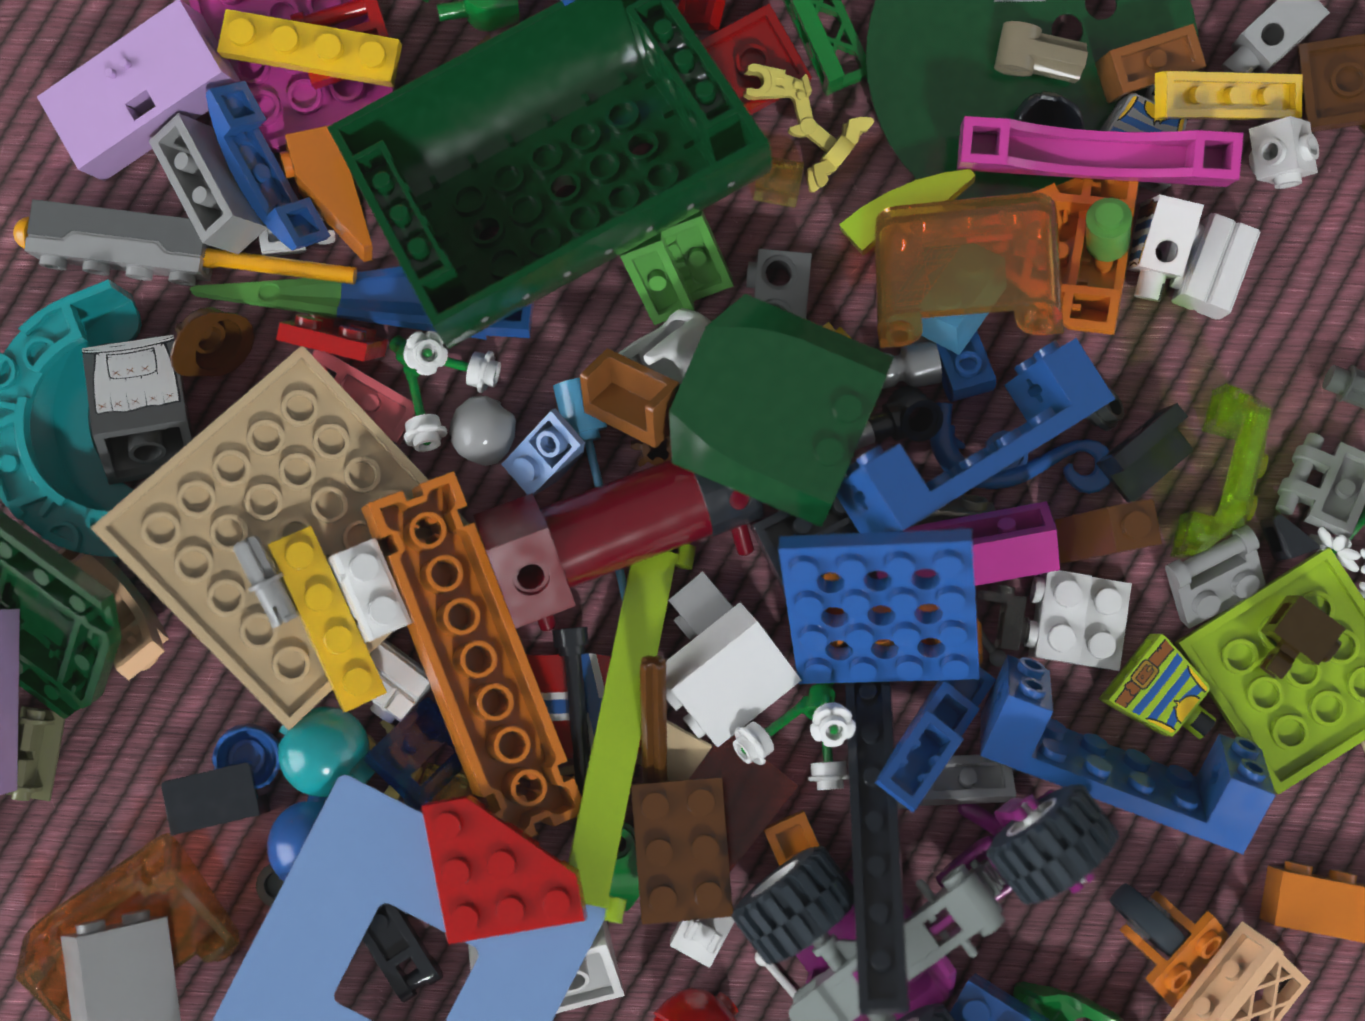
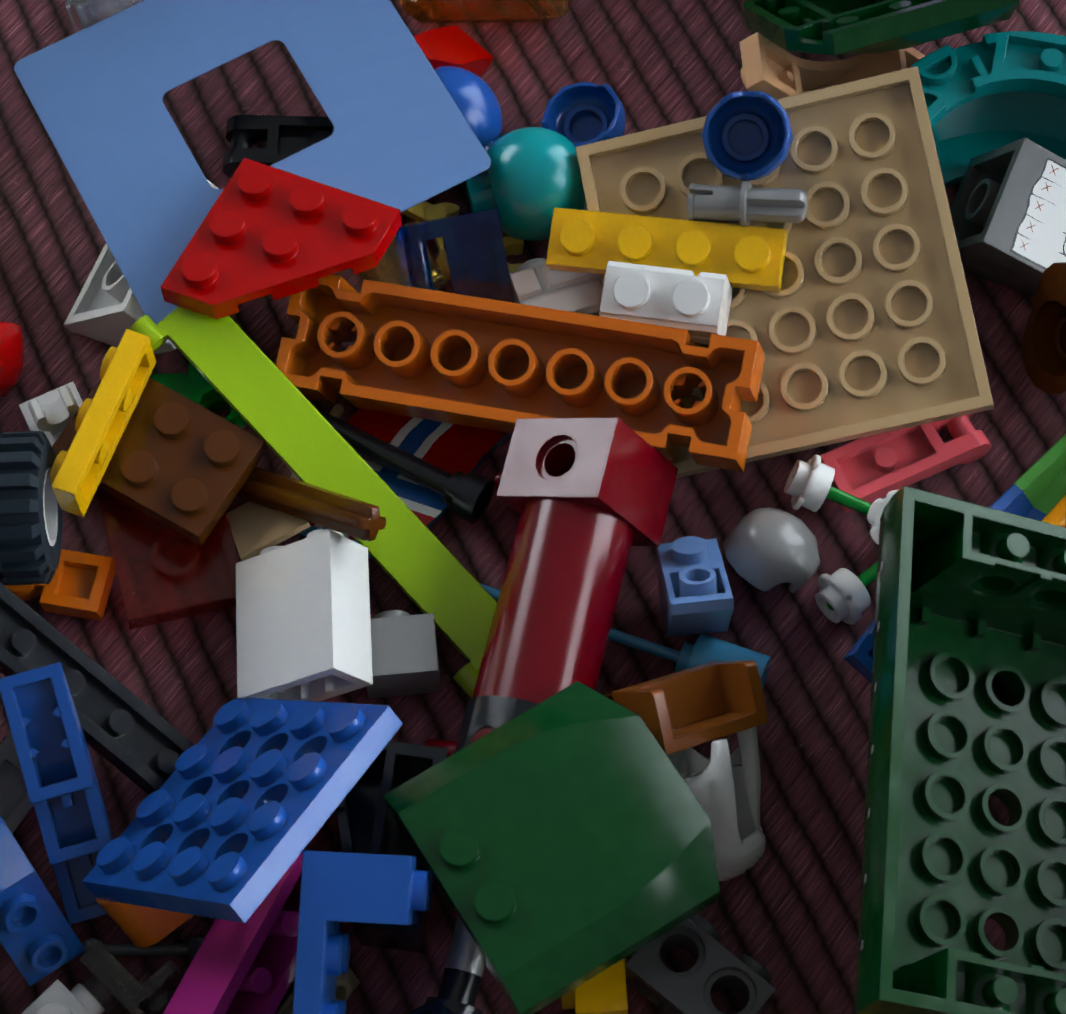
camera: 125 degrees right, 20 degrees down
(212, 798) = (562, 65): black panel -> none
(219, 606) = (747, 135): none -> blue hair
(251, 887) = (453, 48): none -> red slope
(318, 333) = (986, 446): red plate -> none
(677, 267) = (811, 883): bright green slope -> none
(699, 888) = (102, 422): none -> yellow plate
(830, 725) = (162, 674): white plant -> none

